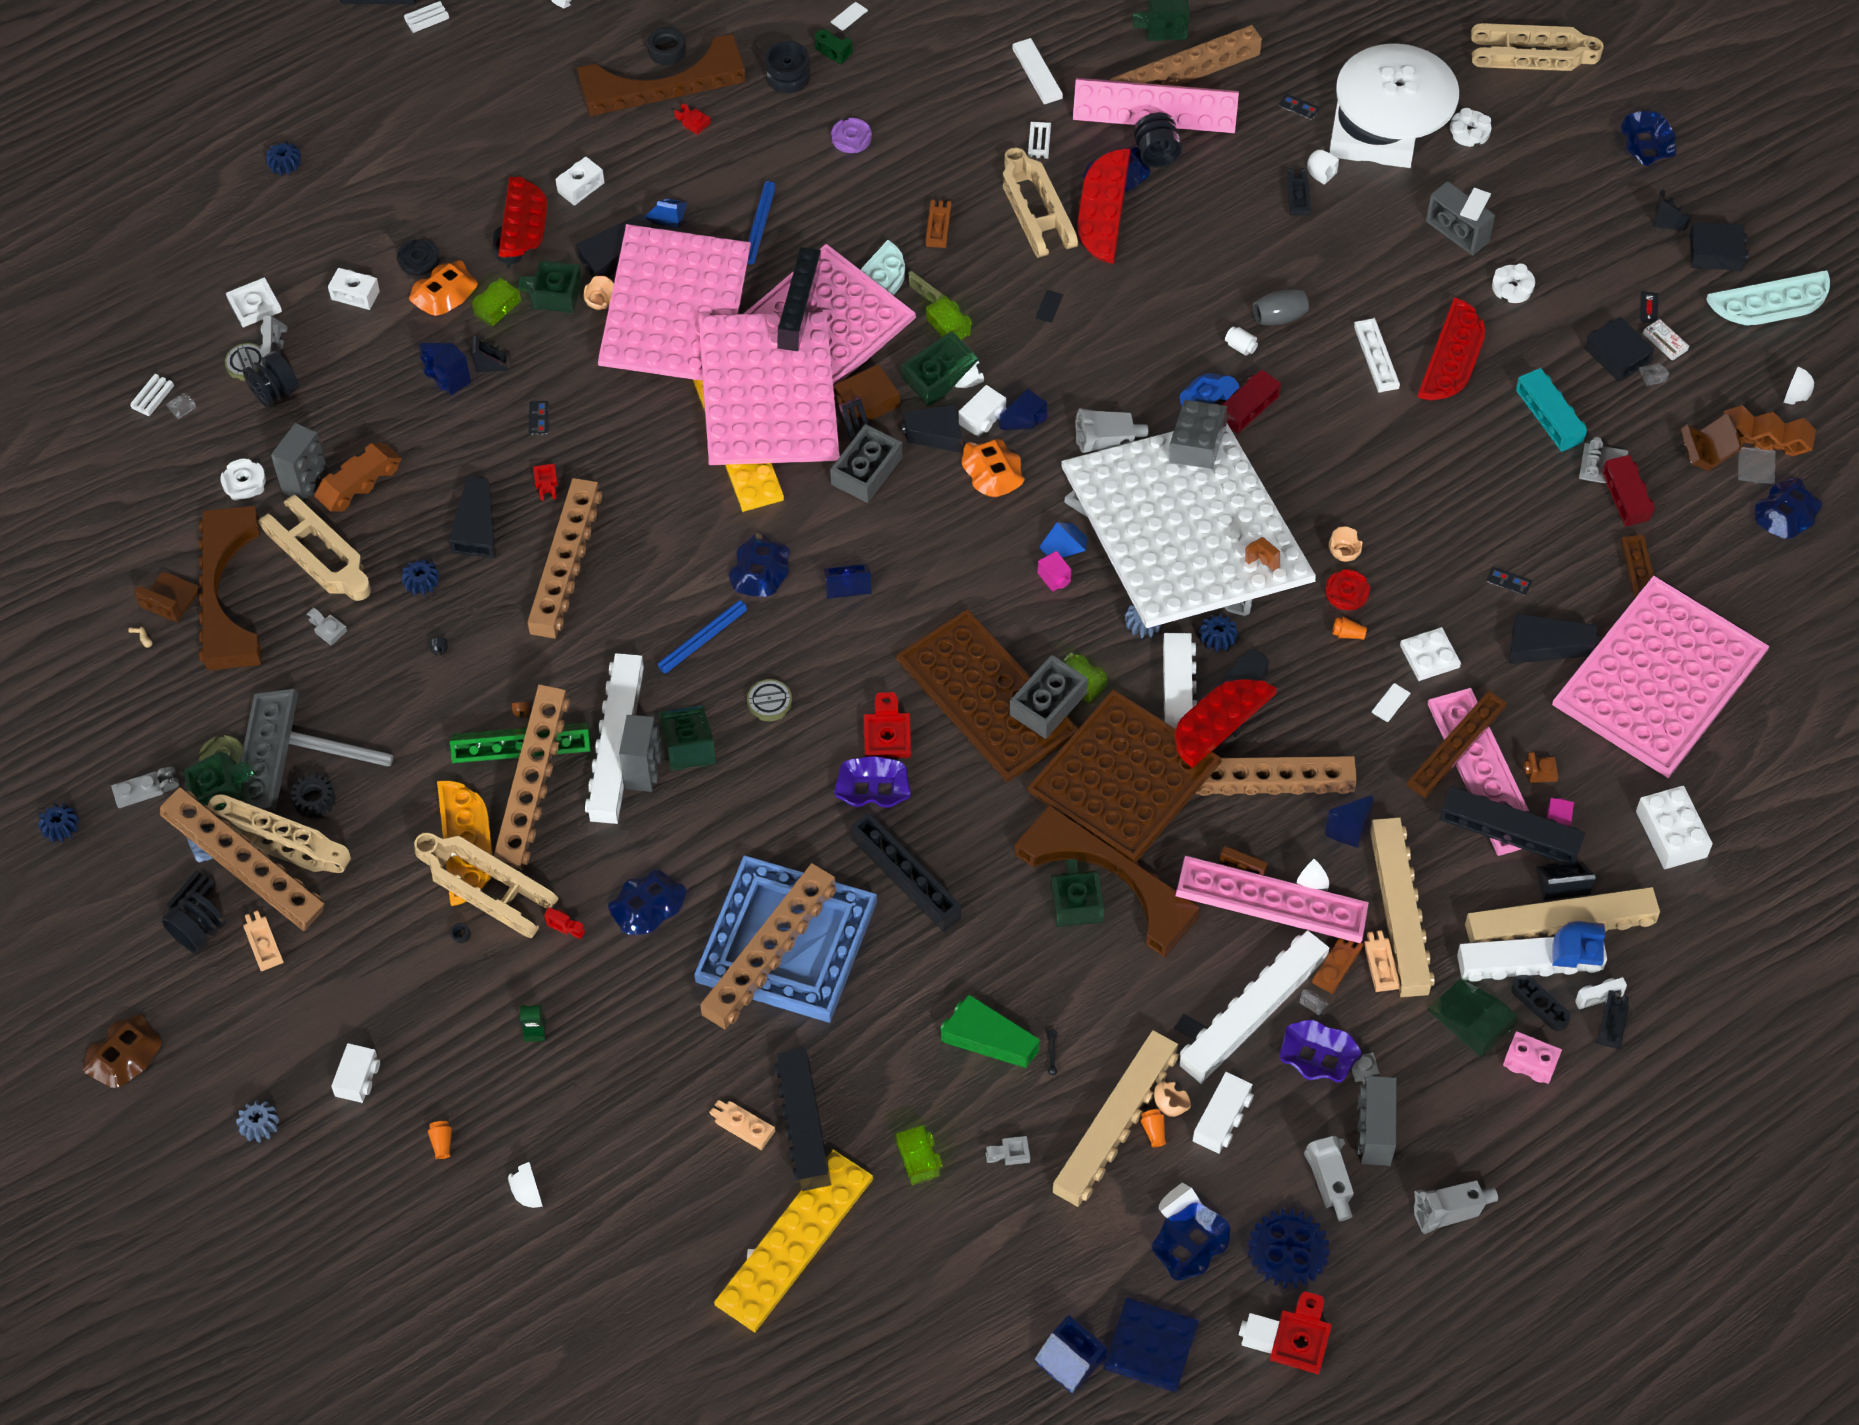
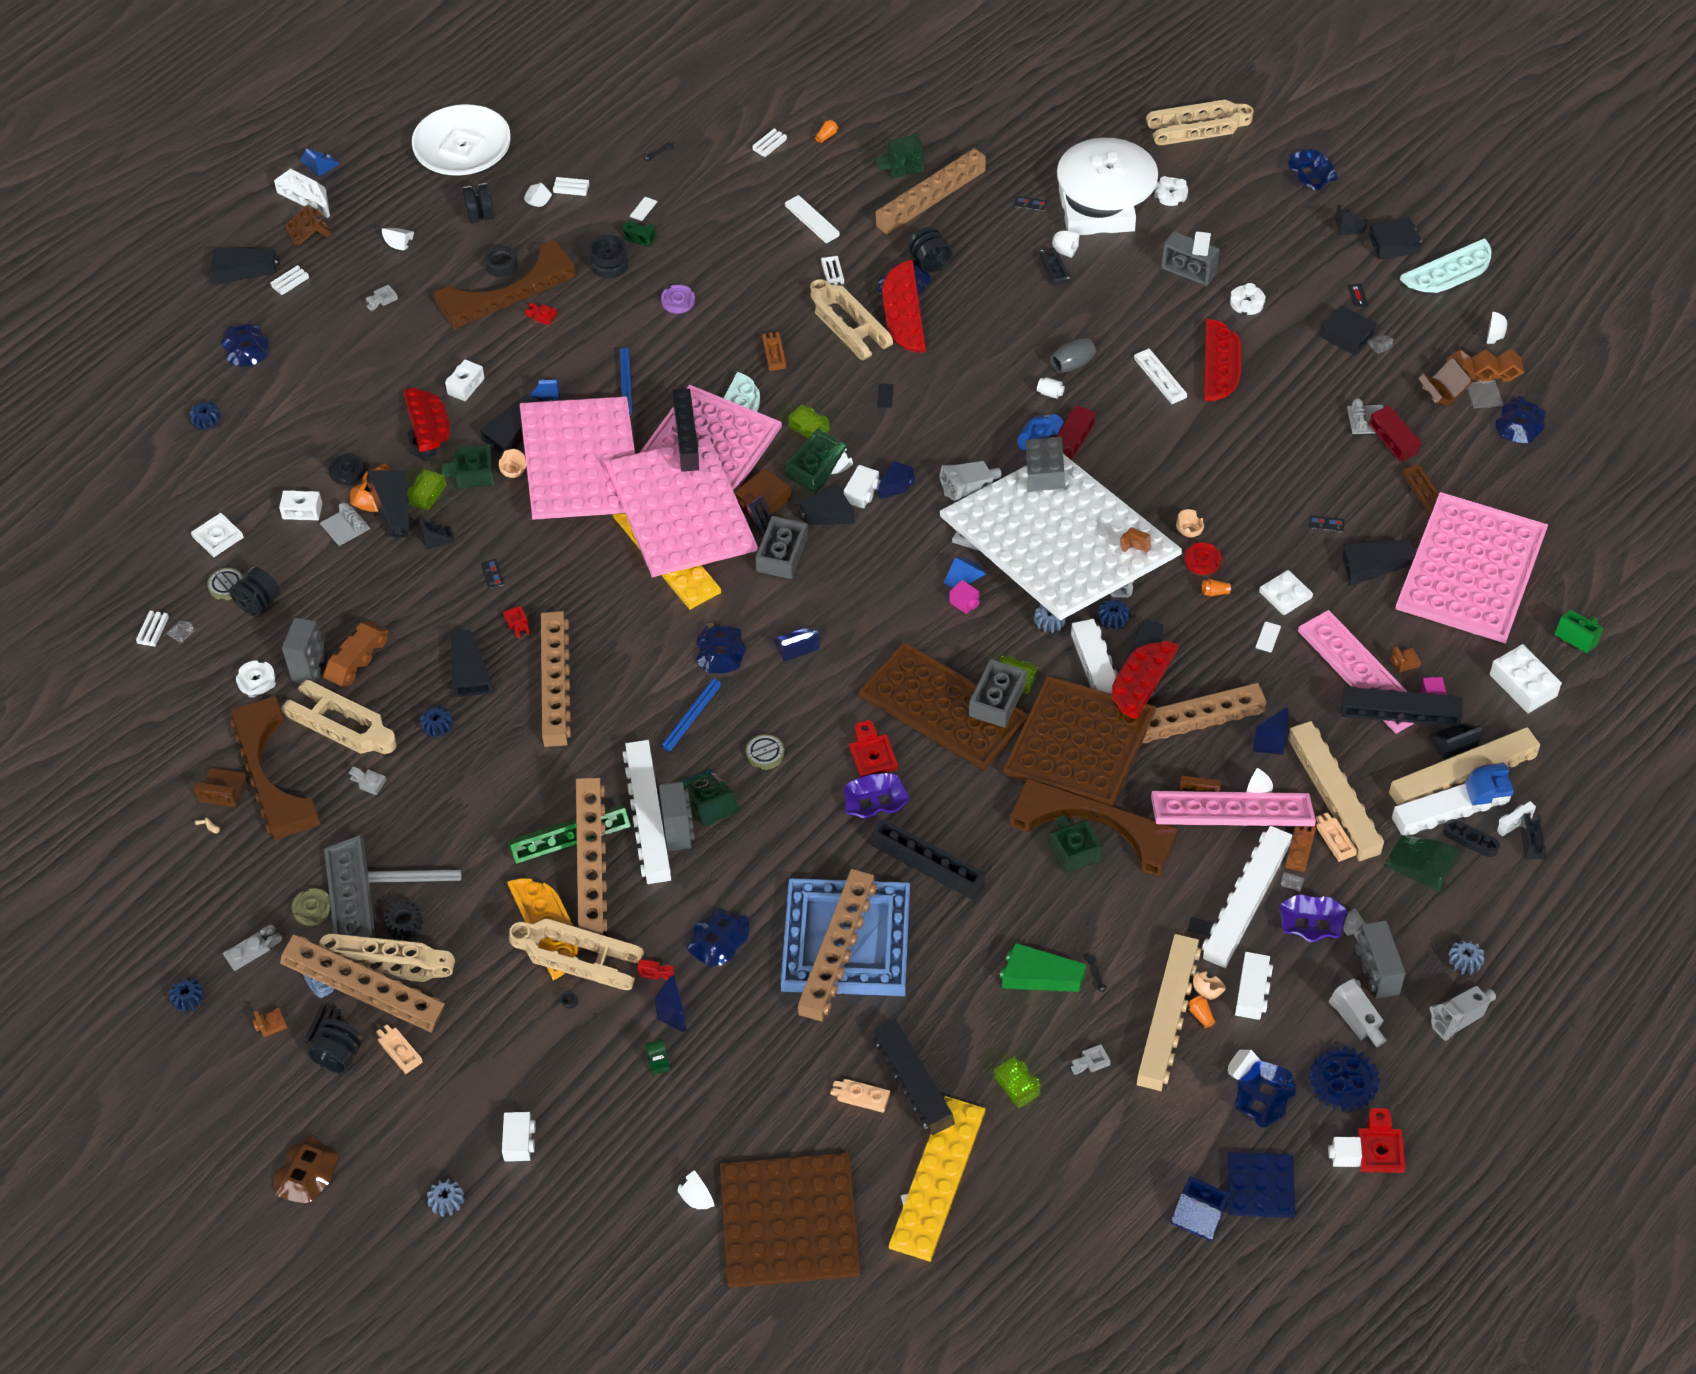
camera: 15 degrees left, 5 degrees down
(135, 876) = (269, 1022): none -> dark orange bracket
(217, 776) = (317, 921): clear green hinge -> none
(271, 331) = (242, 553): light grey wing -> none
(354, 97) = (248, 355): none -> clear blue piece
(395, 322) = (344, 525): none -> light grey hinge
(438, 645) = (470, 773): black hinge -> none
(440, 1138) = (609, 1171): orange cone -> none
(445, 365) = (401, 548): clear blue slope -> none
(451, 303) = (390, 497): none -> black slope
(521, 59) = (383, 295): none -> light grey plate
(521, 707) = (556, 806): dark orange hinge -> none
(565, 967) = (669, 1005): none -> clear blue slope
(616, 1244) = (789, 1220): none -> reddish brown plate
(924, 288) = (780, 402): olive slope -> none
(982, 475) = (879, 535): orange piece -> none
(1131, 101) = (899, 225): bright pink plate -> none
(1456, 744) = (1335, 654): reddish brown plate -> none
(1490, 1142) = (1466, 957): none -> sand blue gear
(1532, 1057) = (1481, 881): bright pink brick -> none
(1551, 409) = (1312, 386): teal brick -> none
(1665, 339) = (1380, 316): white tile -> none
(1760, 785) = (1579, 631): none -> green brick

